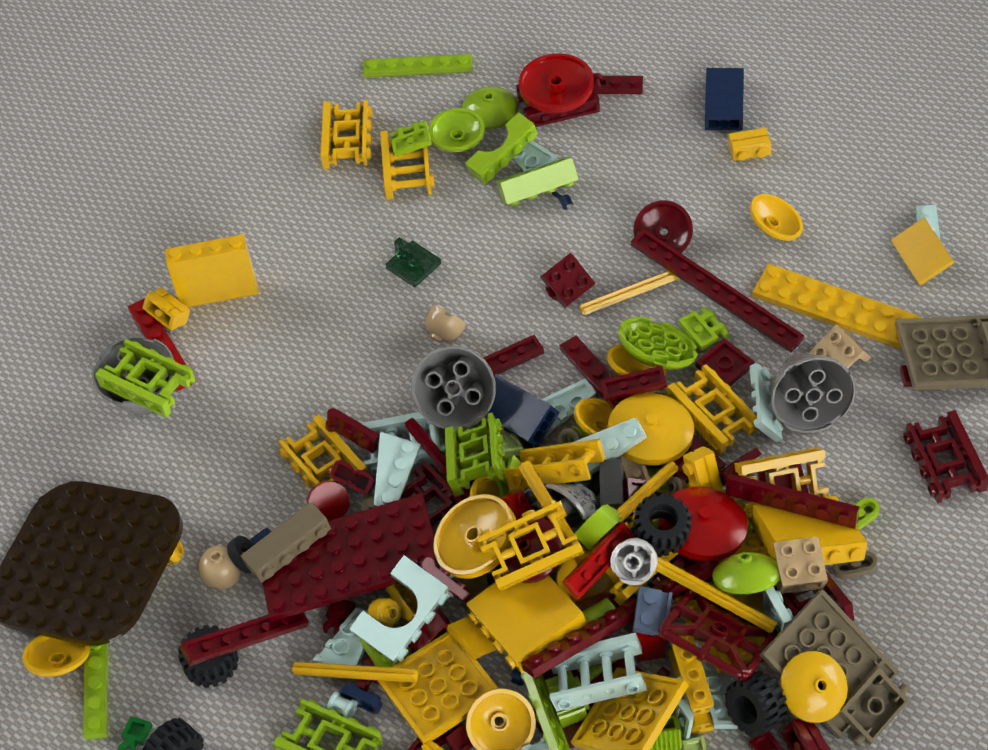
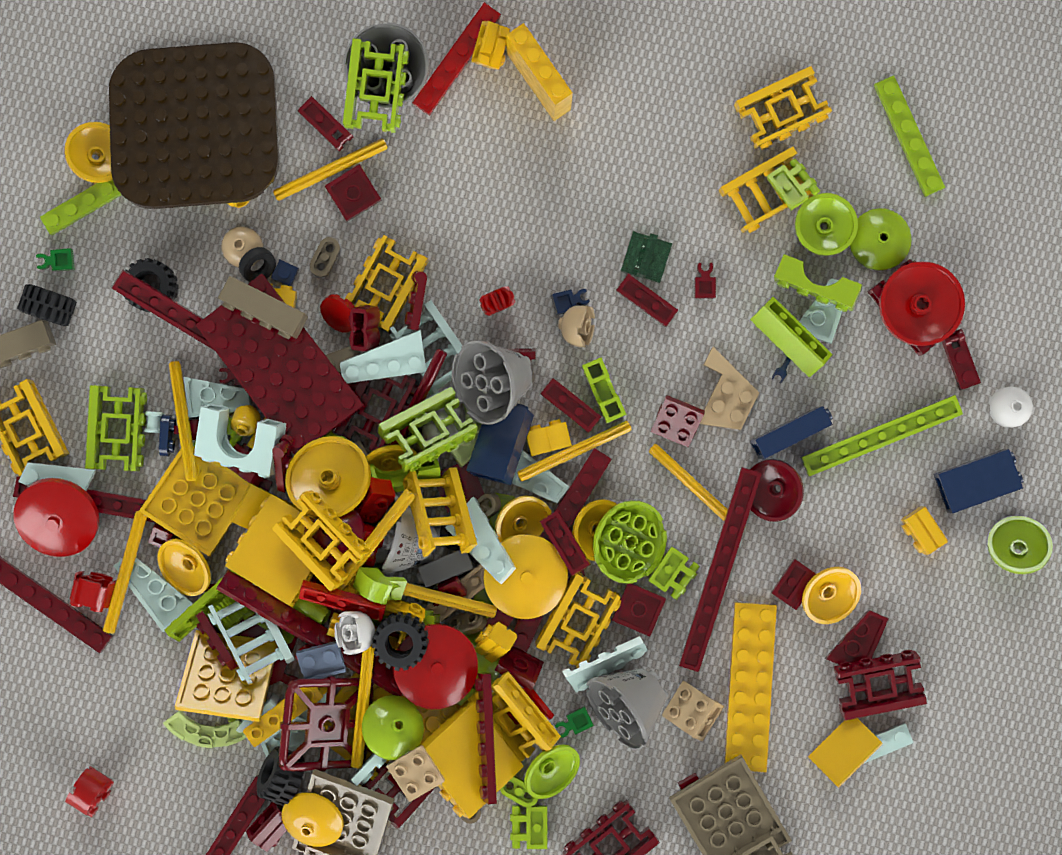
camera: 55 degrees right, 35 degrees up
(152, 459) = (324, 123): none -> dark red plate
(194, 472) = (330, 169): none -> yellow axle
(226, 459) = (353, 193): none -> dark red plate
(270, 503) = (323, 257): none -> dark tan plate
(387, 375) = (497, 300): none -> red gear
(417, 330) = (564, 300): none -> dark blue plate
(450, 272) = (647, 300): none -> dark red plate
(458, 229) = (704, 285): none -> dark red plate
(497, 326) = (603, 390): none -> lime arch
(534, 377) = (548, 438): none -> yellow brick
(554, 363) = (574, 451): none -> yellow axle
(562, 240) = (731, 397): none -> tan wing
(589, 713) = (215, 641): none -> dark red plate
(618, 202) = (791, 432): none -> dark blue brick
(653, 147) = (881, 435): none -> lime plate
(673, 62) = (1010, 407): none -> white cylinder
(755, 245) = (792, 584): none -> dark red plate
(791, 84) = (1020, 534): none -> lime dish
(810, 440) = (577, 721): none -> green plate
(829, 216) = (860, 640): none -> dark red wing
(849, 473) = (551, 771): none -> lime dish
(887, 208) = (881, 700): none -> dark red fence
(902, 512) = (535, 827): none -> lime plate

